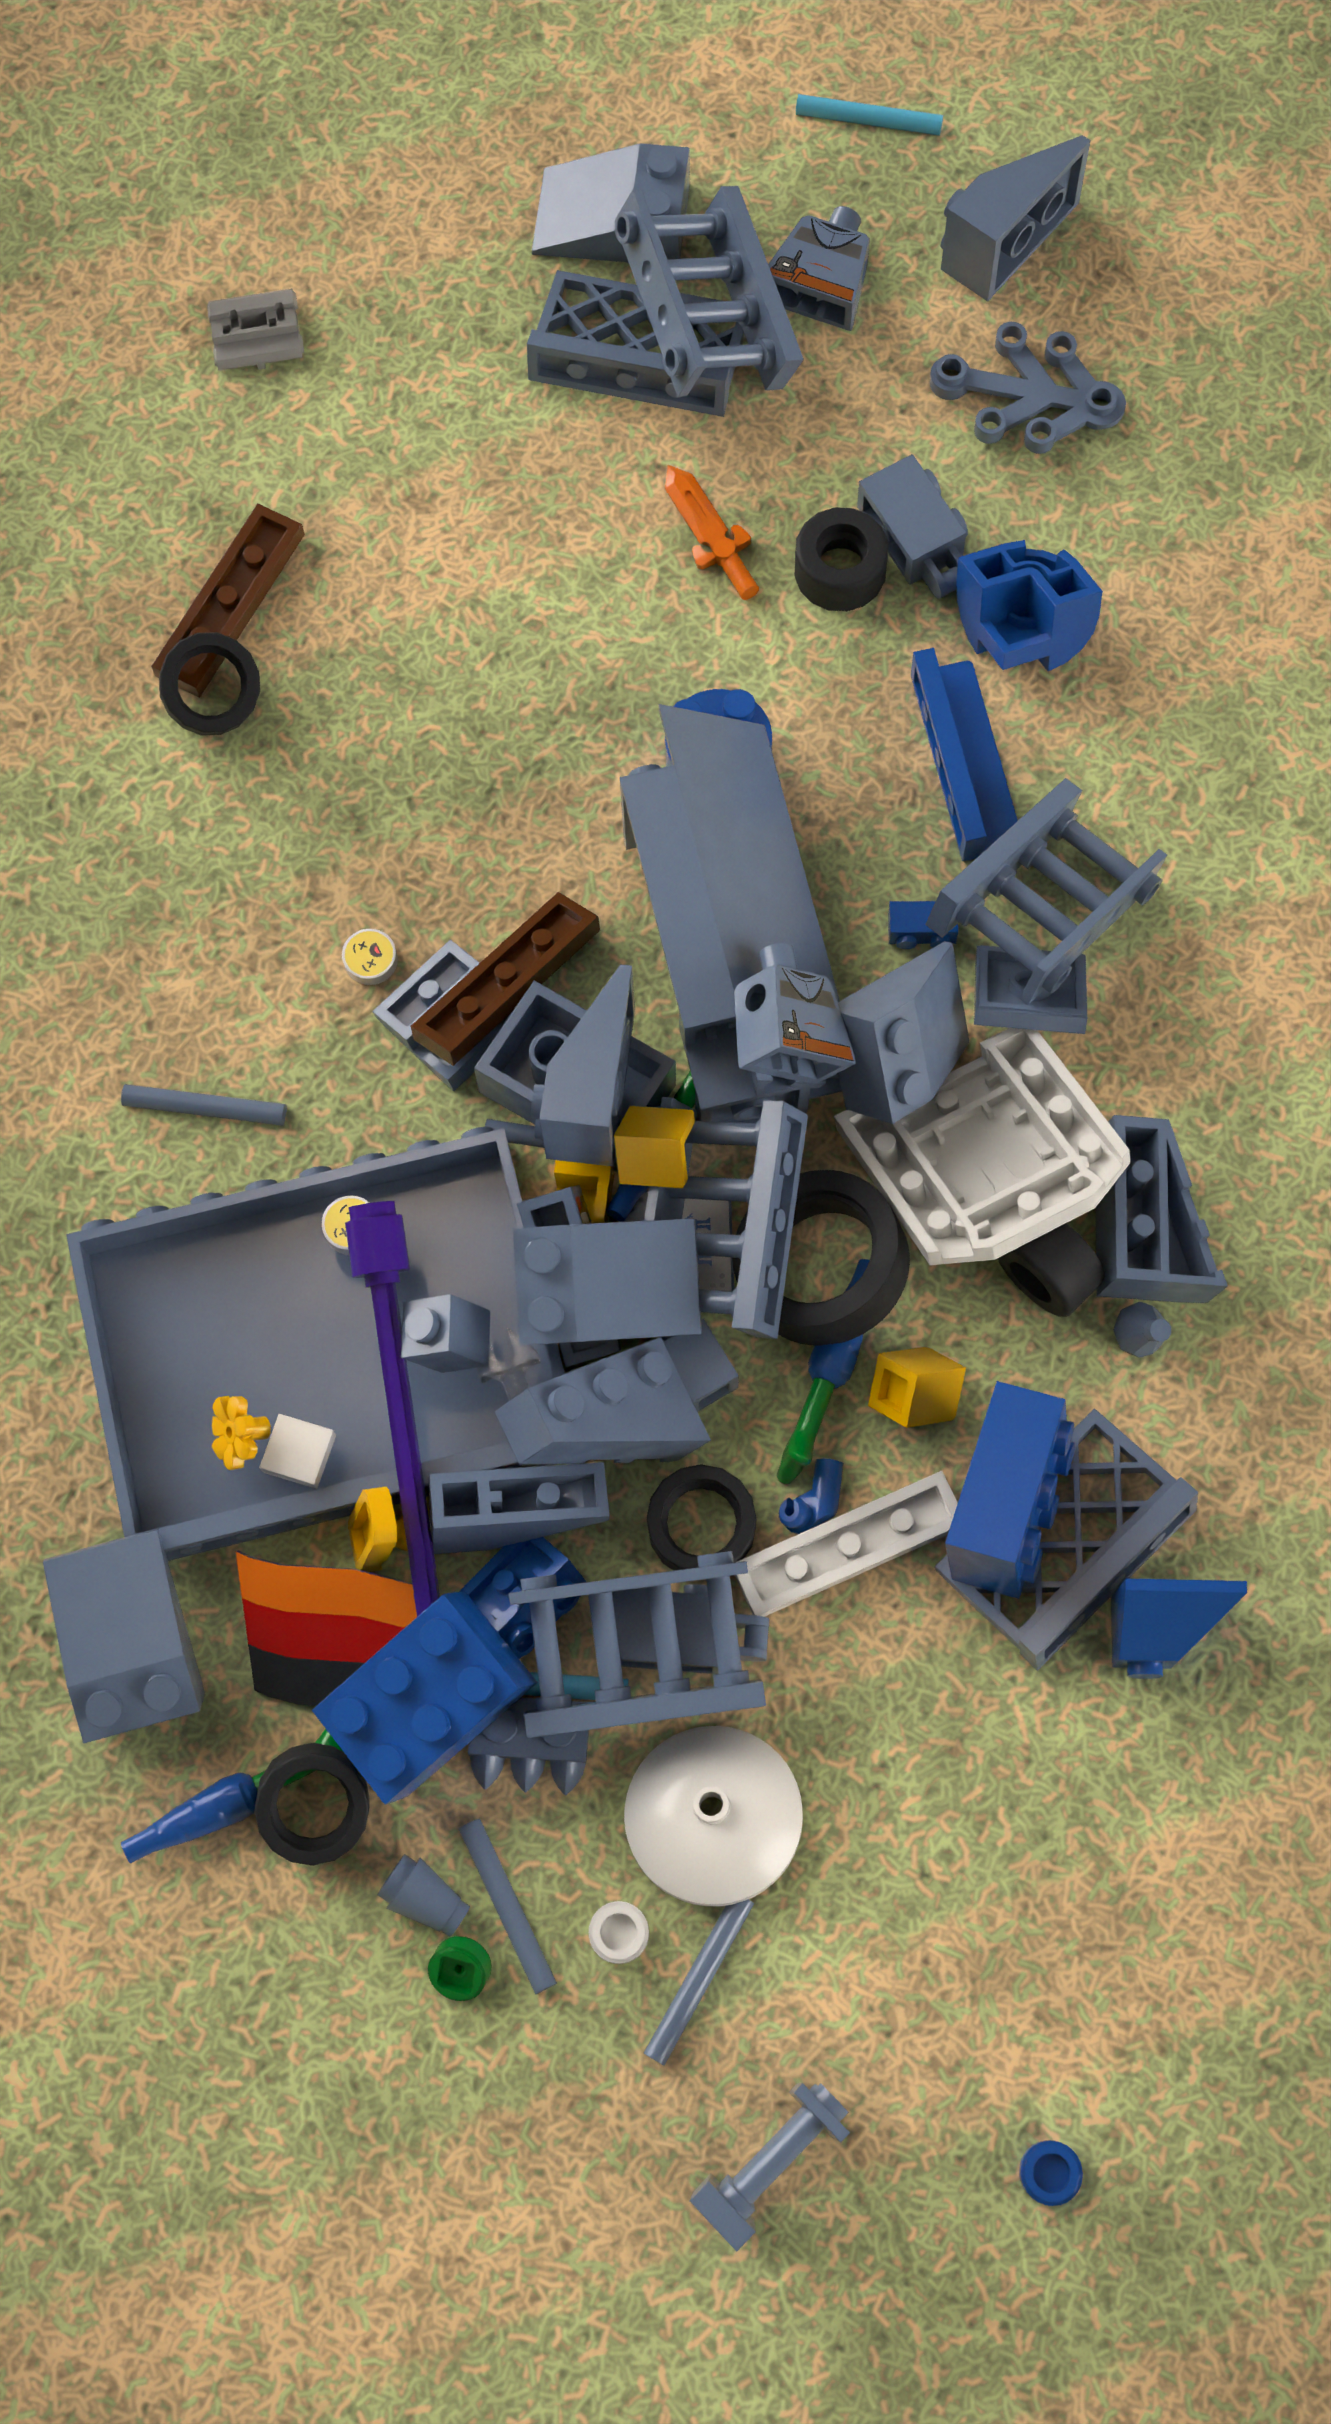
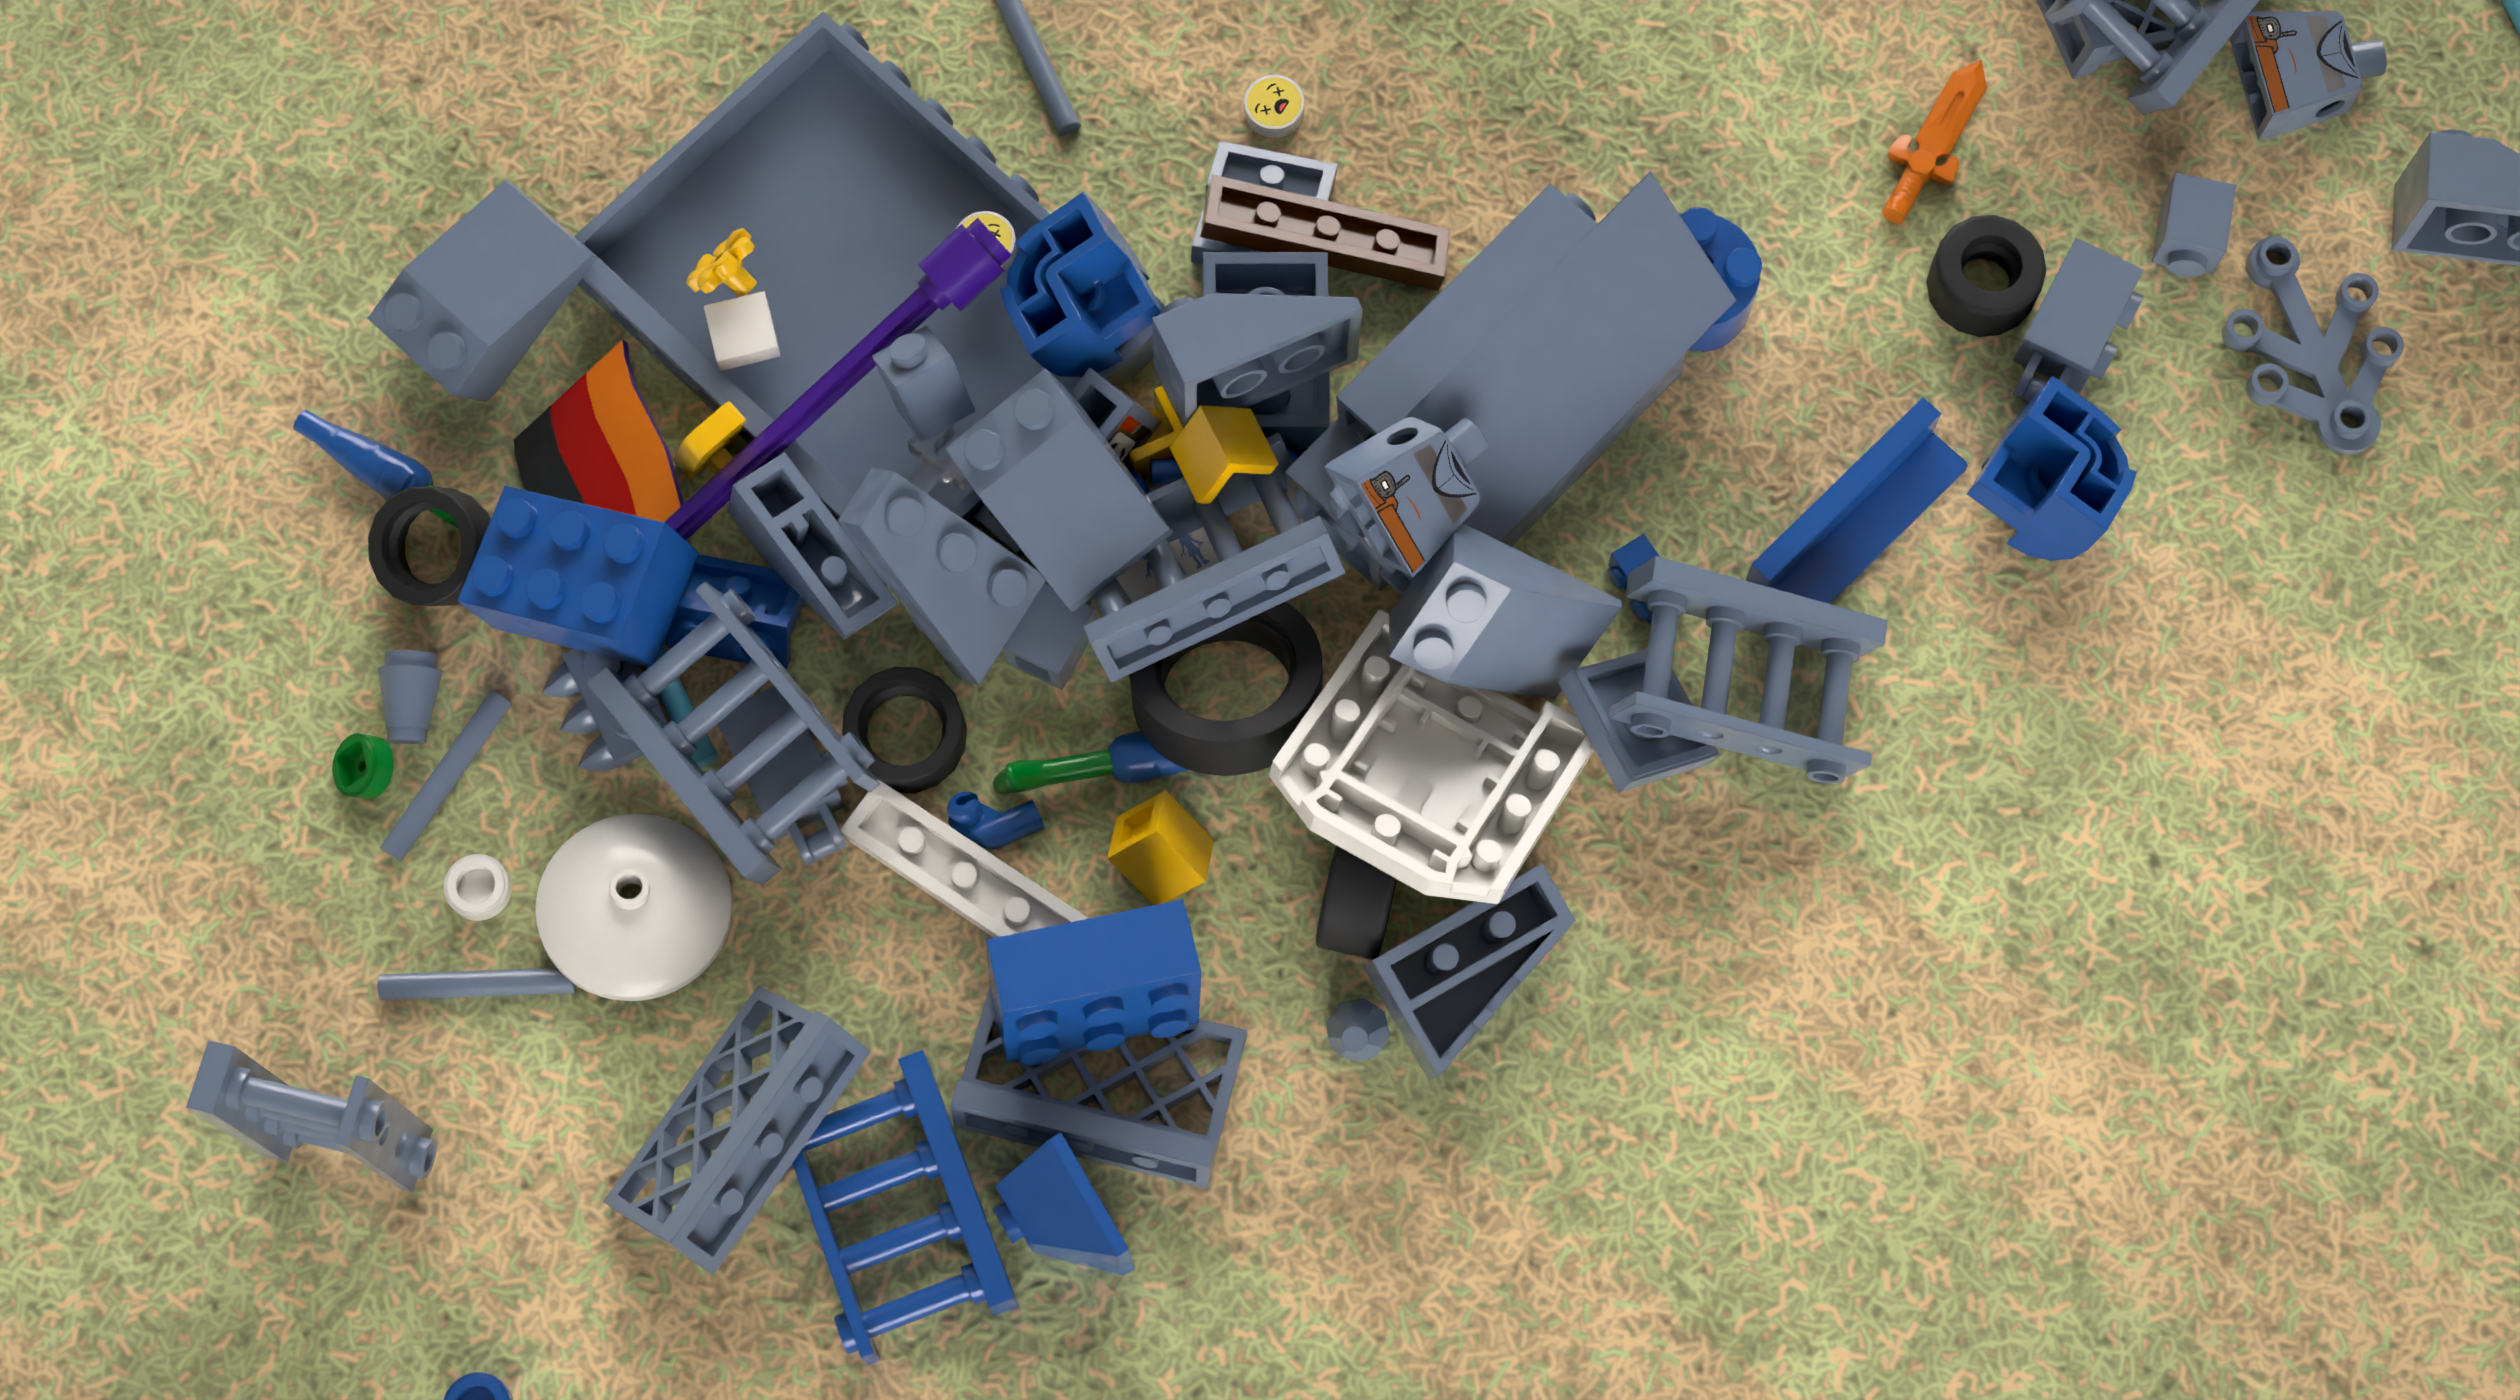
camera: 55 degrees right, 0 degrees up
(448, 1174) = (1077, 290): none -> blue brick
(893, 406) = (2193, 225): none -> sand blue brick
(983, 1816) = (756, 1143): none -> sand blue fence
(1119, 1705) = (957, 1218): none -> blue fence

